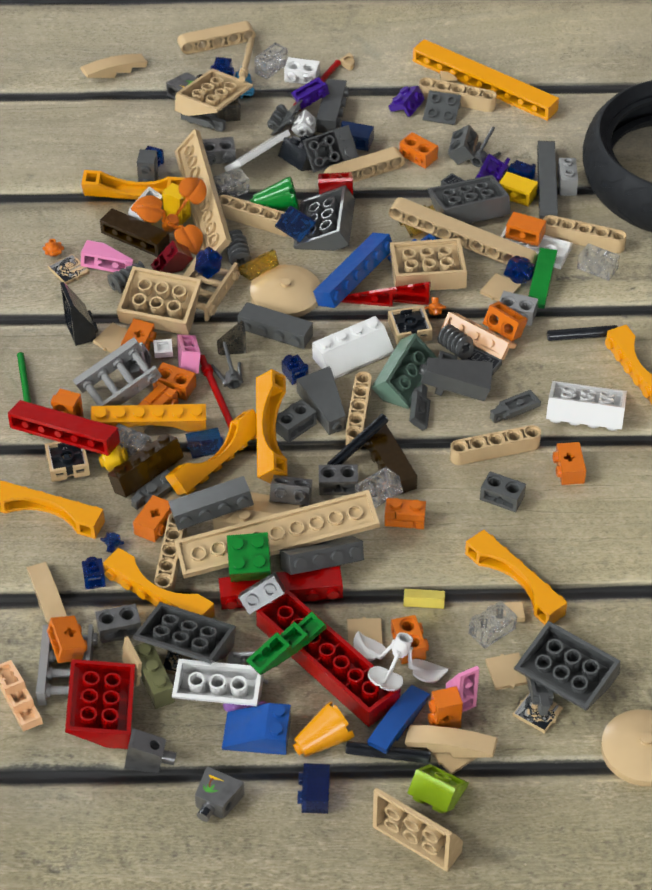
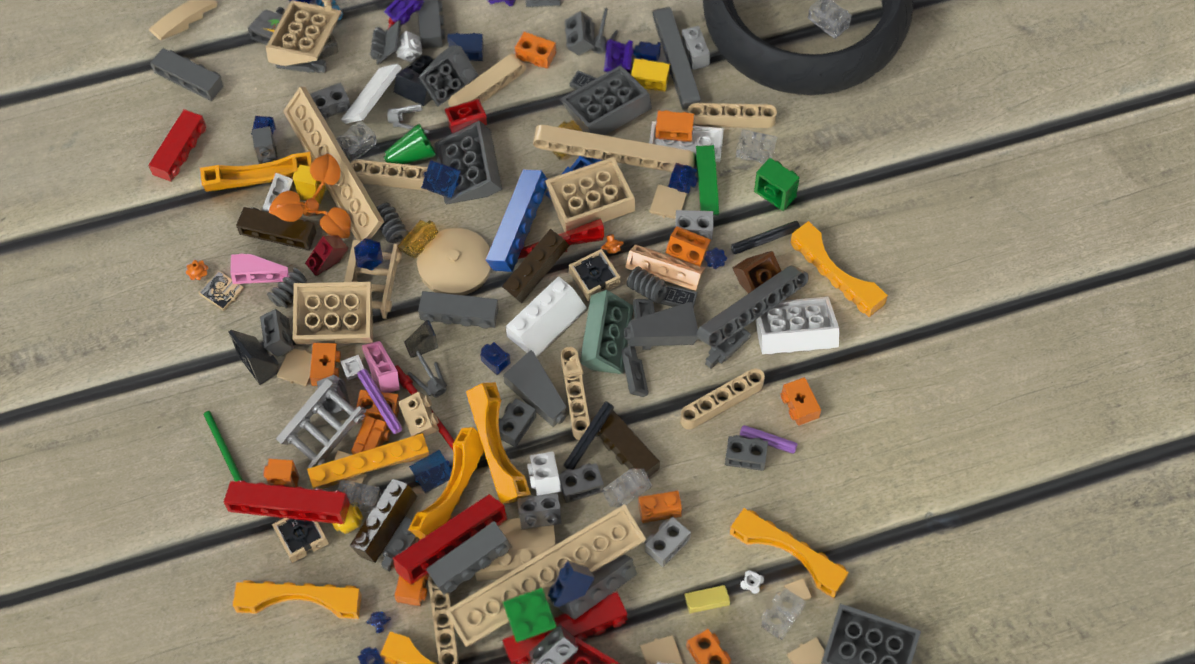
camera: 15 degrees left, 15 degrees up
(72, 155) = (177, 145): none -> red brick
(101, 107) = (187, 74): none -> dark grey brick
(104, 305) = (276, 332): none -> dark grey brick
(157, 494) = (414, 560): none -> red brick
(176, 372) = (379, 401): none -> medium lavender axle
(208, 391) = (419, 415): none -> tan brick
(274, 172) = (396, 115): none -> light grey plant
(296, 540) = (571, 583): none -> dark blue slope
(305, 462) = (544, 473): none -> white brick
(357, 303) = (535, 265): none -> dark brown brick
(362, 386) = (573, 367): none -> tan tile
(402, 542) = (671, 544): none -> light grey brick
(472, 589) = (752, 576): none -> white plate
(528, 337) = (715, 258): none -> clear blue plant
(532, 488) = (773, 441): none -> medium lavender axle
(542, 377) = (752, 306): none -> dark grey beam
(566, 359) = (756, 270): none -> reddish brown slope
(606, 290) = (776, 184): none -> green brick

